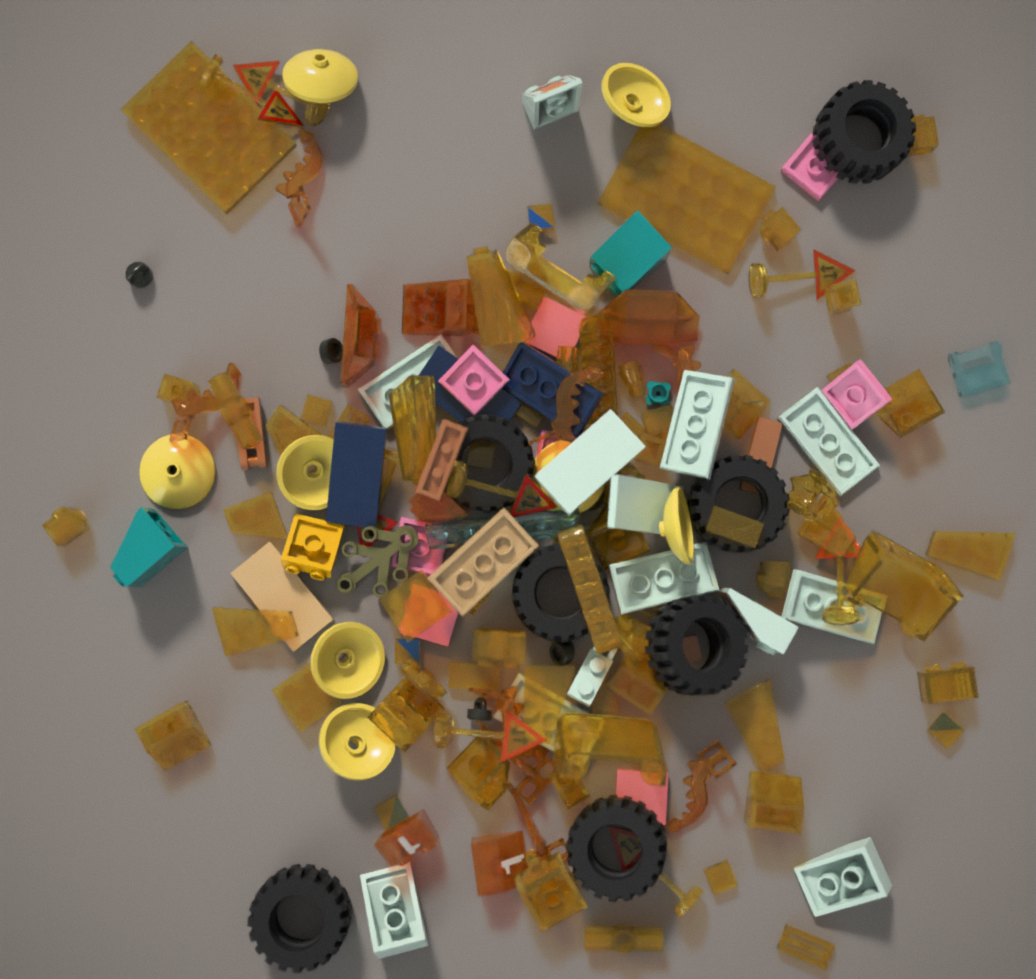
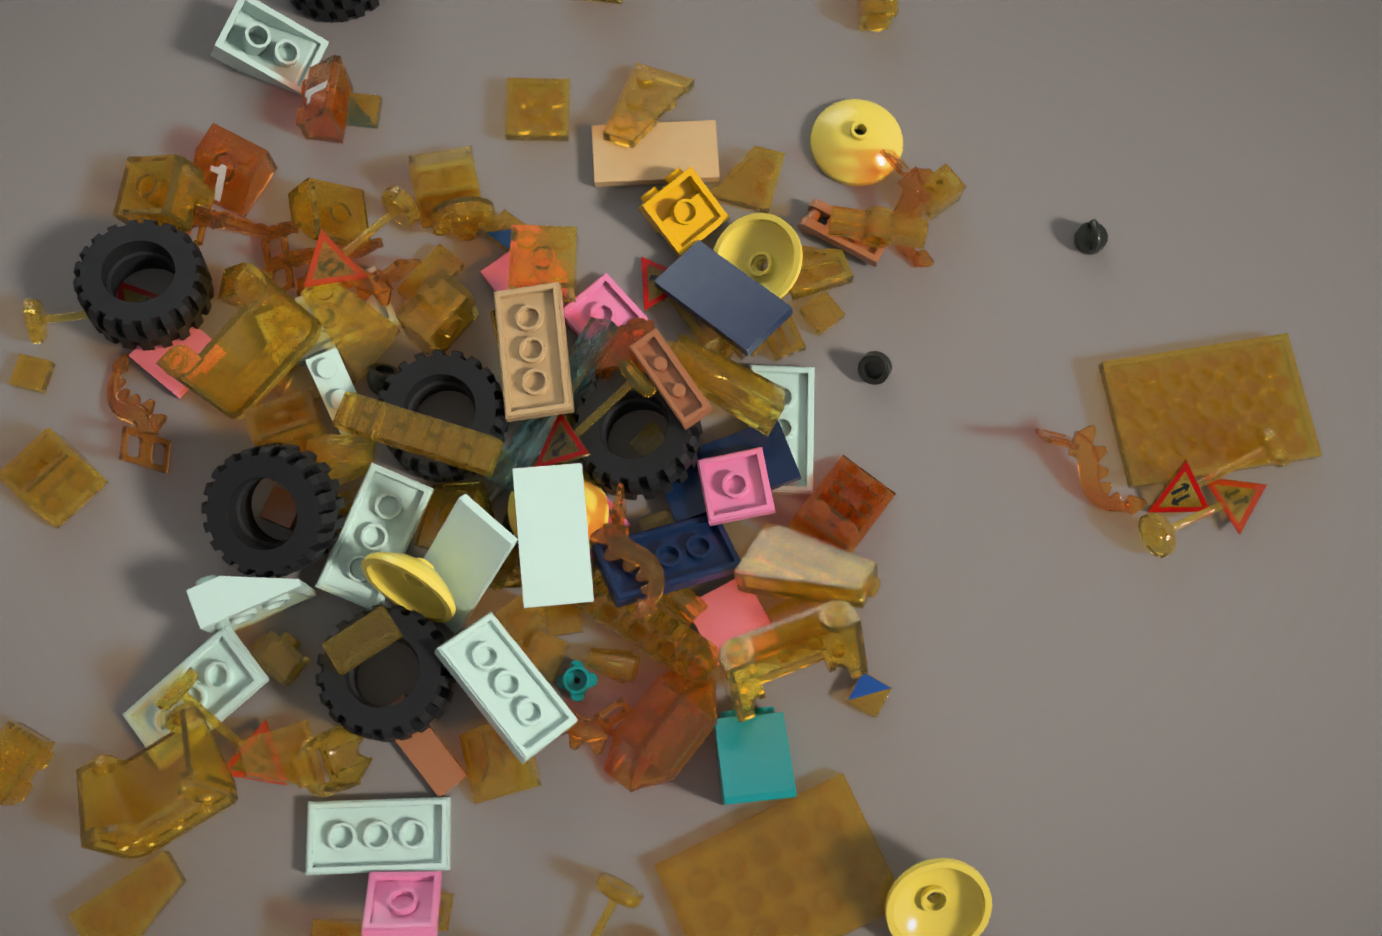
camera: 120 degrees right, 10 degrees down
(145, 549) = (798, 55): teal slope -> none
(320, 76) = (1193, 561): light yellow dish -> none
(348, 725) = (455, 92): light yellow dish -> none
(358, 669) = (526, 161): light yellow dish -> none
(359, 337) = (870, 406): clear orange wedge -> none
(380, 557) = (620, 267): olive plant -> none
(480, 712) = (387, 253): pearl dark grey tile -> none
(552, 100) = (998, 800): light aqua slope -> none
(605, 938) = (70, 220): clear yellow piece -> none
(758, 724) = (148, 525): clear yellow wing -> none

